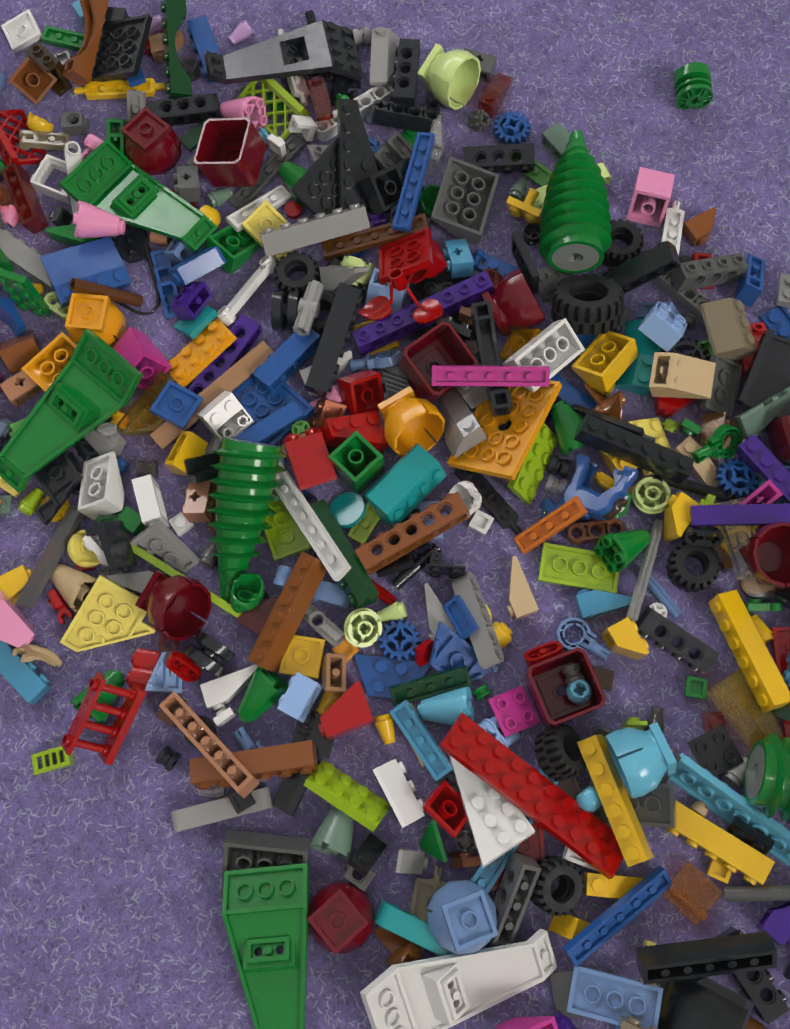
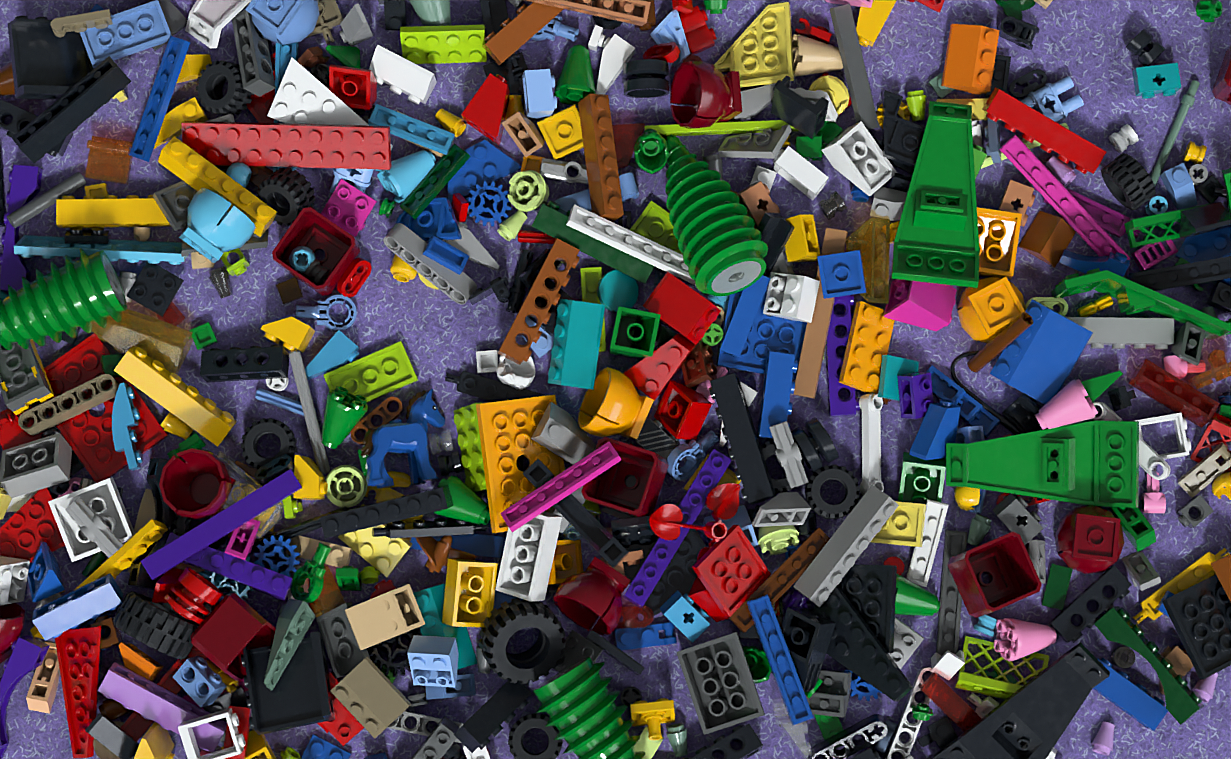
camera: 145 degrees right, 10 degrees up
(107, 429) = (892, 211): light grey piece -> none
(277, 145) = (959, 624): white plate -> none
(520, 597) = (405, 312): tan slope -> none
(550, 525) = (420, 395): orange tile -> none

